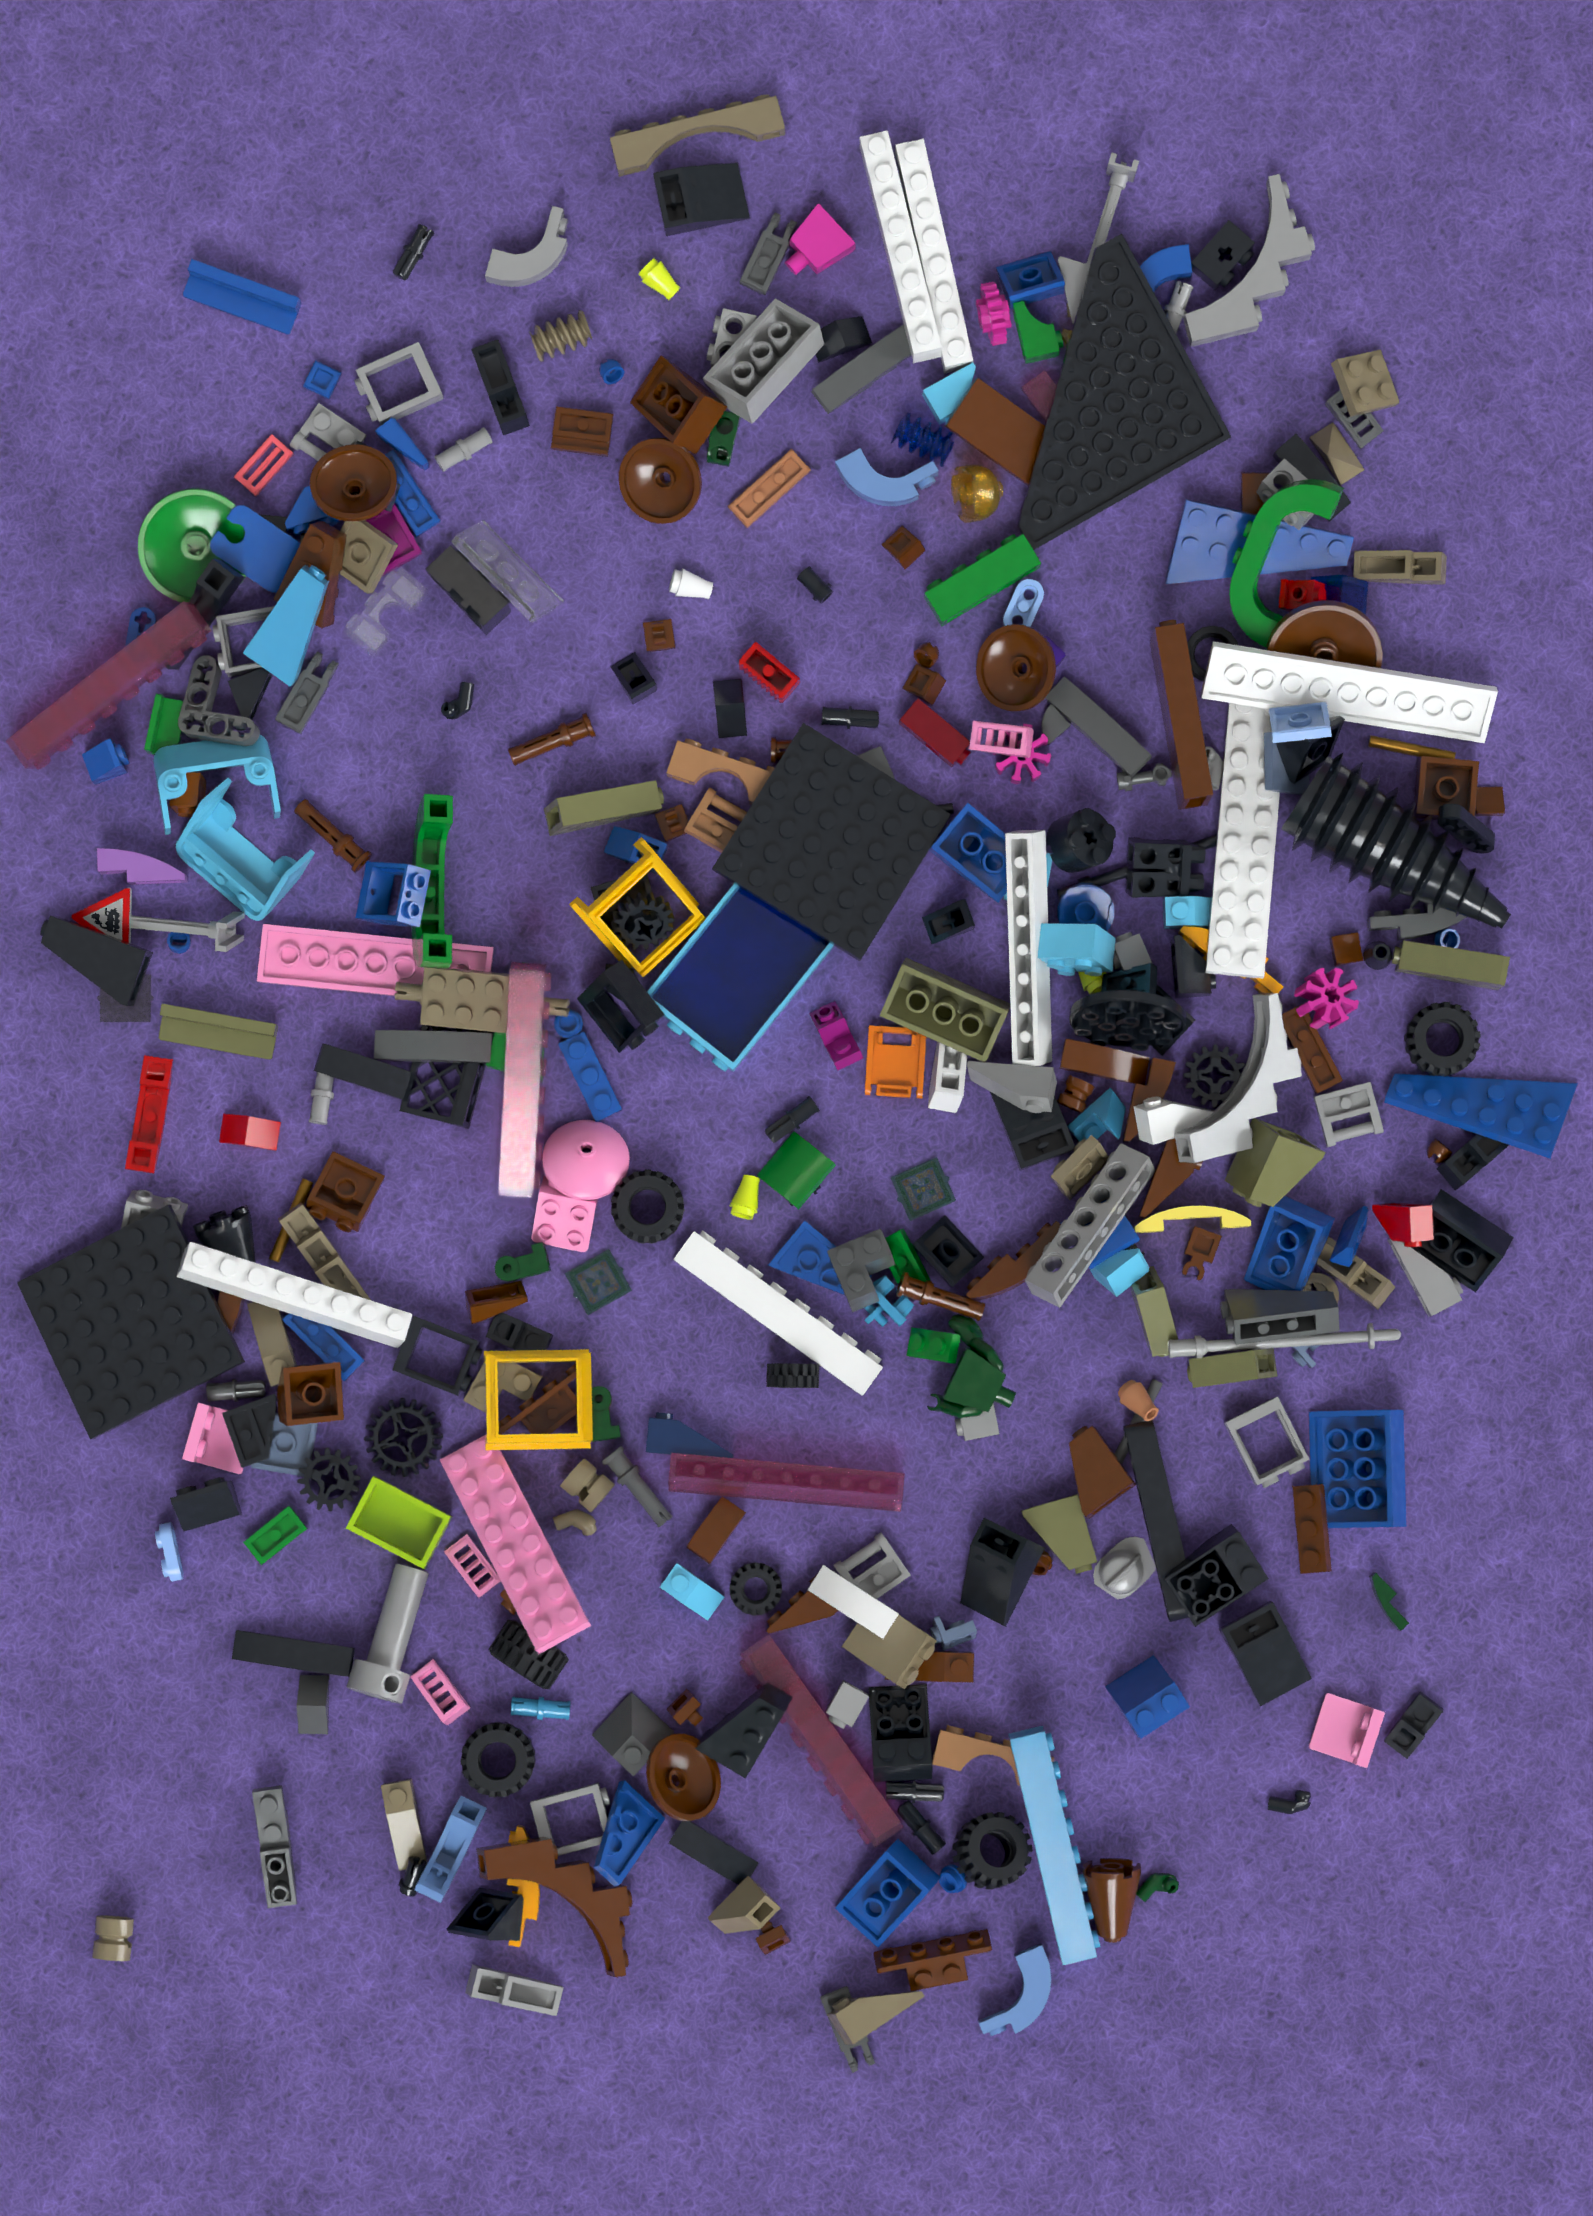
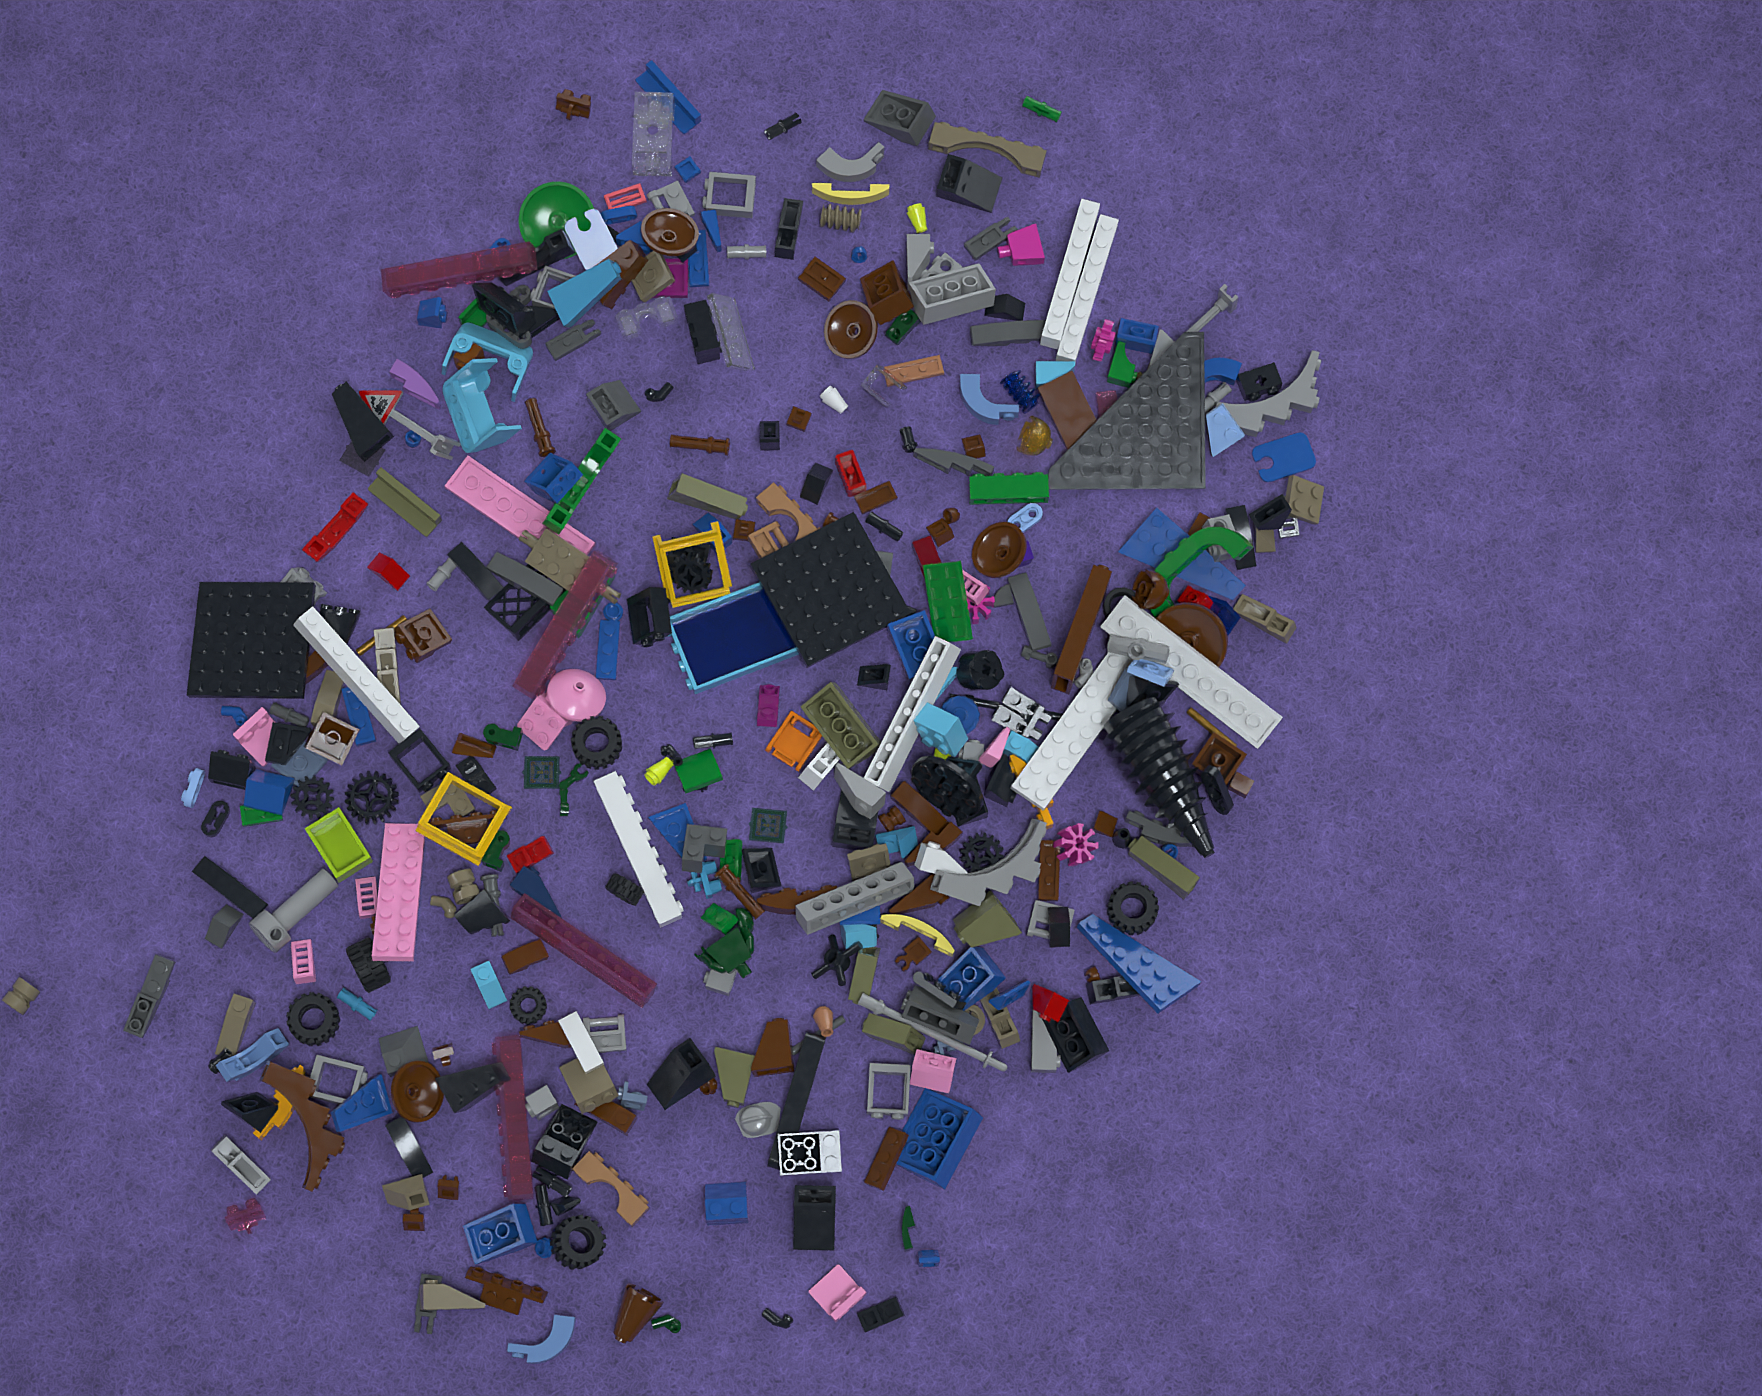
camera: 25 degrees right, 10 degrees down
(123, 378) = (573, 106): none -> reddish brown hips
(167, 1425) = (236, 712): none -> blue arm
(199, 705) = (504, 308): none -> black slope
(228, 1573) = (211, 816): none -> black beam
(268, 1504) = (267, 791): none -> blue slope
(269, 384) = (653, 152): none -> clear plate
(270, 492) = (619, 214): none -> blue beam
(410, 751) = (612, 404): none -> dark grey slope
(520, 311) = (876, 192): none -> light yellow slope
(559, 154) = (900, 117): none -> dark grey slope
(562, 2055) = (246, 1218): none -> clear pink hips
(631, 1508) = (481, 913): none -> black slope
(637, 1284) = (564, 785): none -> dark green piece
(645, 1395) = (530, 854): none -> red slope
(690, 332) = (918, 255): none -> light grey slope
(736, 39) = (1041, 109): none -> green pin
(739, 547) = (873, 375): none -> clear piece
(752, 1166) = (673, 754): none -> black arm
(792, 1873) = (448, 1188): none -> reddish brown tile
(816, 684) = (875, 497): none -> reddish brown tile
(879, 586) = (946, 460): none -> dark grey slope
(946, 1811) = (564, 1204): none -> black slope
(990, 774) = (948, 601): none -> green plate
(1053, 1846) = (616, 1259): brick -> none
(1111, 1315) = (837, 960): none -> black bar
(1158, 932) = (995, 749): none -> bright pink slope
(1212, 347) = (1222, 429): none -> light blue wing
(1241, 617) = (1150, 589): none -> reddish brown cylinder
(1260, 1282) = (938, 989): none -> black plate
(1285, 698) = (1125, 646): none -> light grey piece
(1309, 1387) = (932, 1071): none -> bright pink bracket
(1313, 332) = (1289, 456): none -> blue piece
(1338, 427) = (1272, 514): none -> black slope
(1364, 1115) = (1059, 927): none -> black slope
(1434, 1623) = (928, 1258): none -> blue slope

